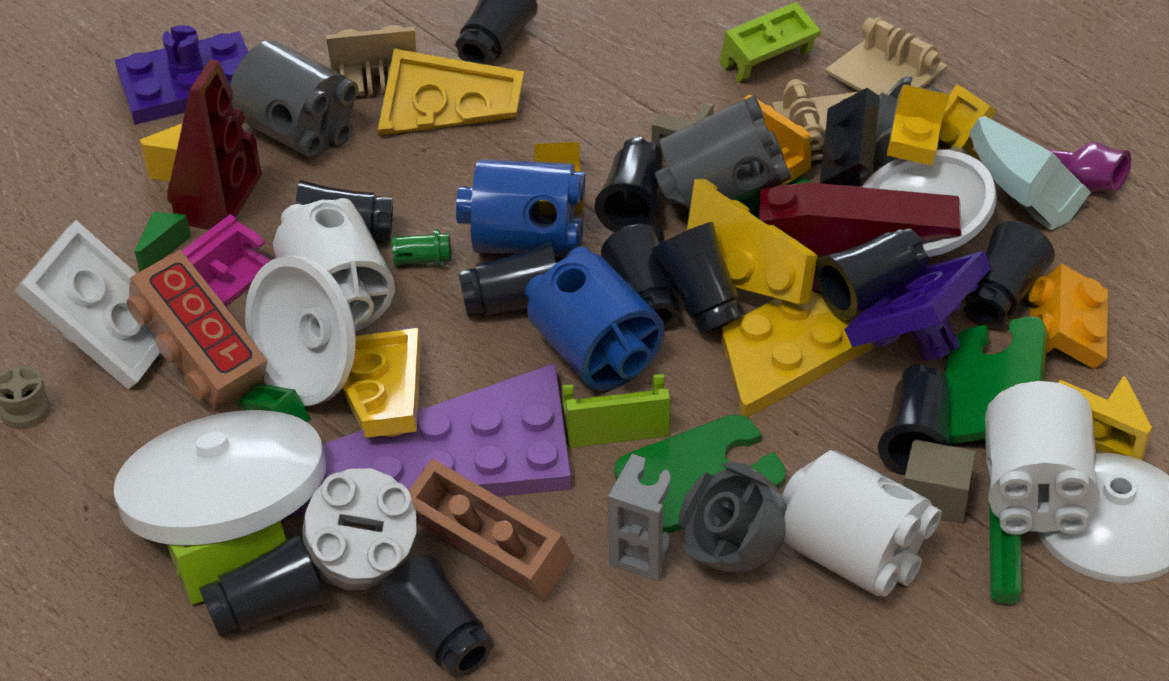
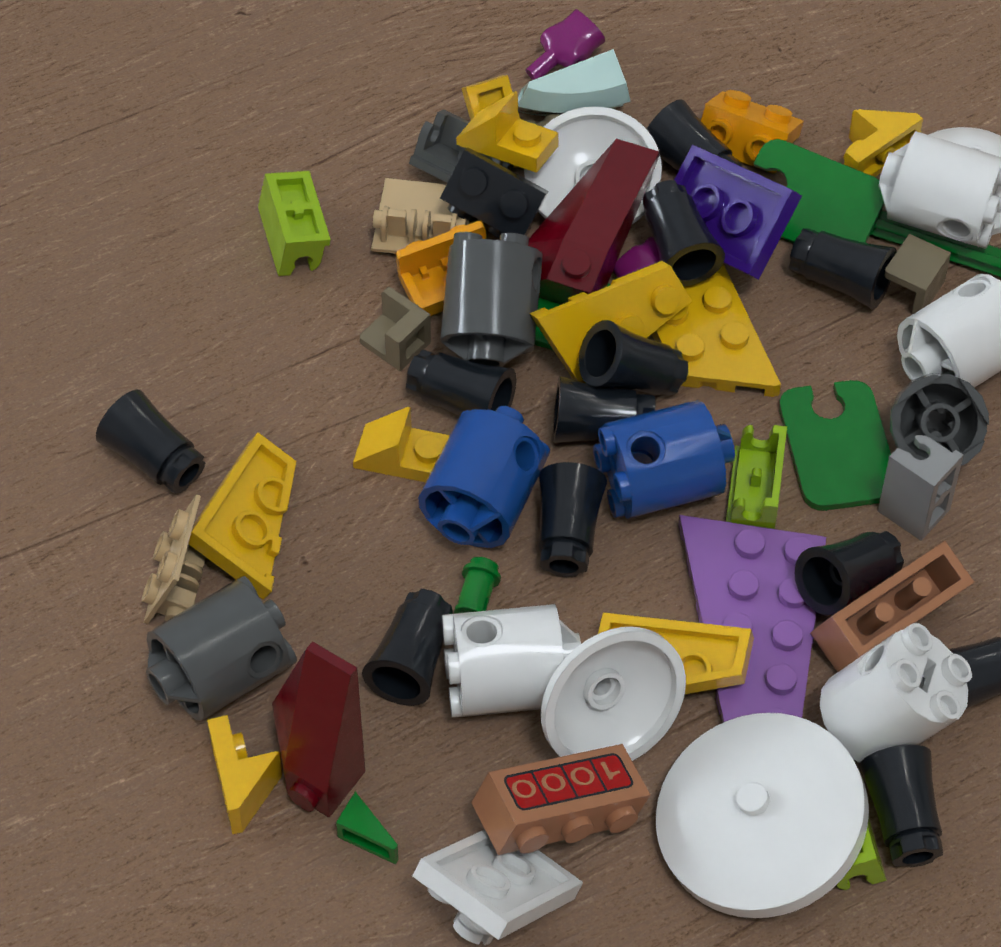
camera: 75 degrees left, 10 degrees up
(160, 80) = (87, 764): dark purple plate -> none
(227, 258) = (437, 778): dark pink hinge -> none
(274, 399) = (655, 760): green piece -> none
(524, 482) = (843, 571): none -> black plant
(887, 58) = (357, 143): tan hinge -> none

